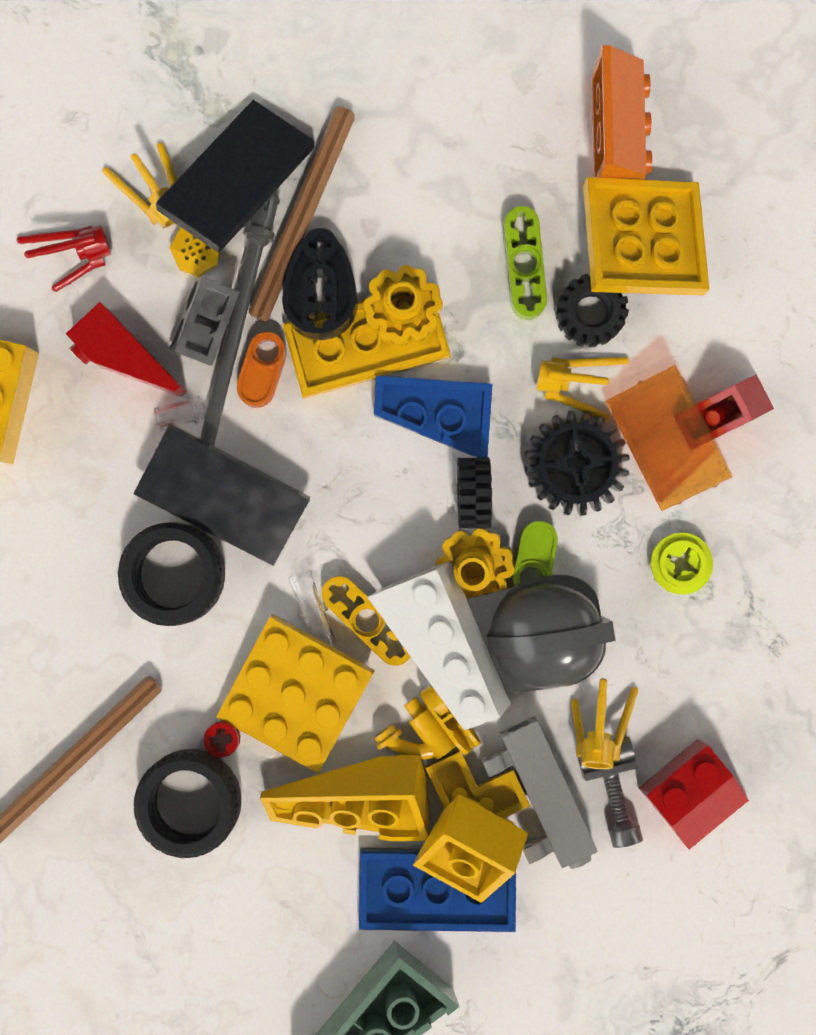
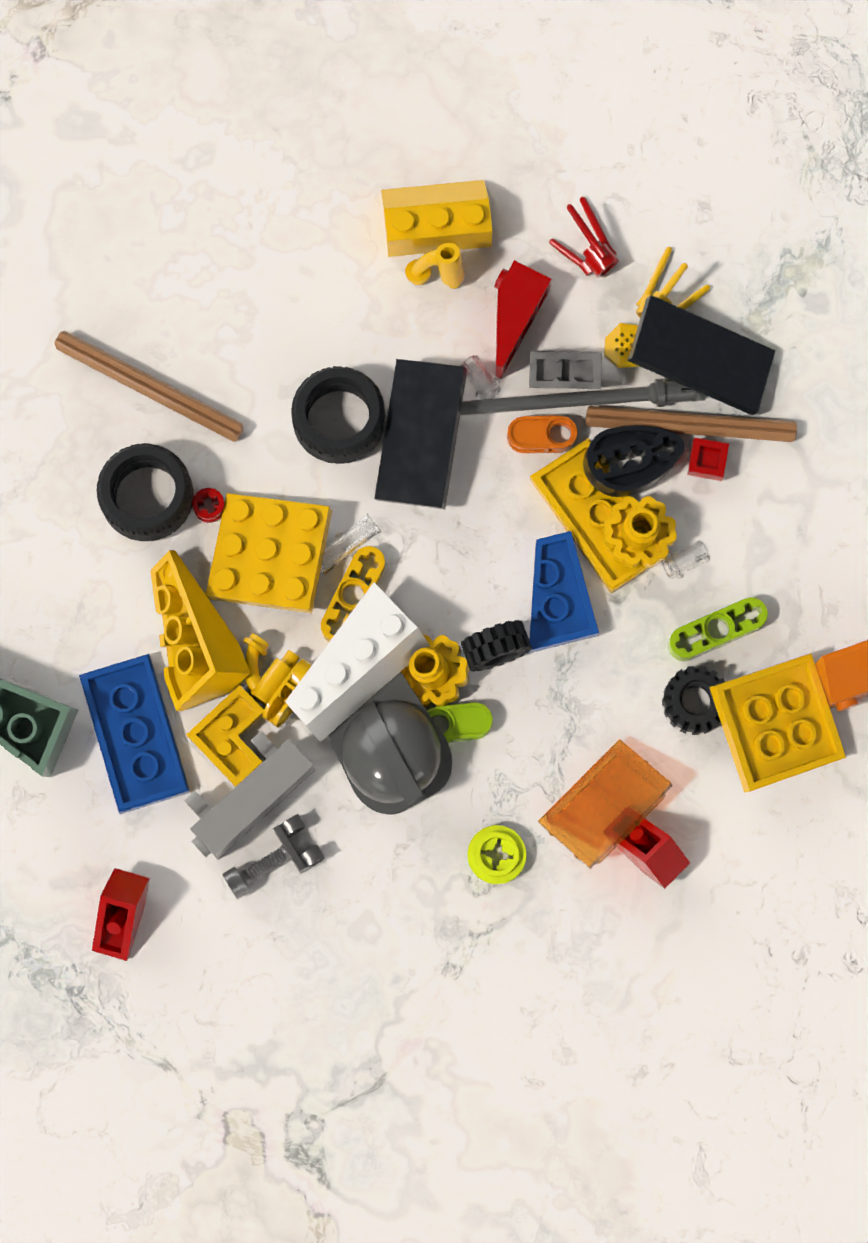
camera: 70 degrees right, 10 degrees down
(41, 404) = (447, 259): none -> yellow plant
(346, 209) = (708, 459): none -> red plate
(444, 268) = (685, 560): none -> clear pin
(472, 849) = (182, 742): yellow slope -> none
(557, 374) = (625, 688): yellow plant -> none
(591, 460) = (547, 716): black gear -> none
(598, 749) = (307, 824): yellow plant -> none
(619, 962) = (120, 913): none -> red slope
(694, 793) = (291, 933): red slope -> none

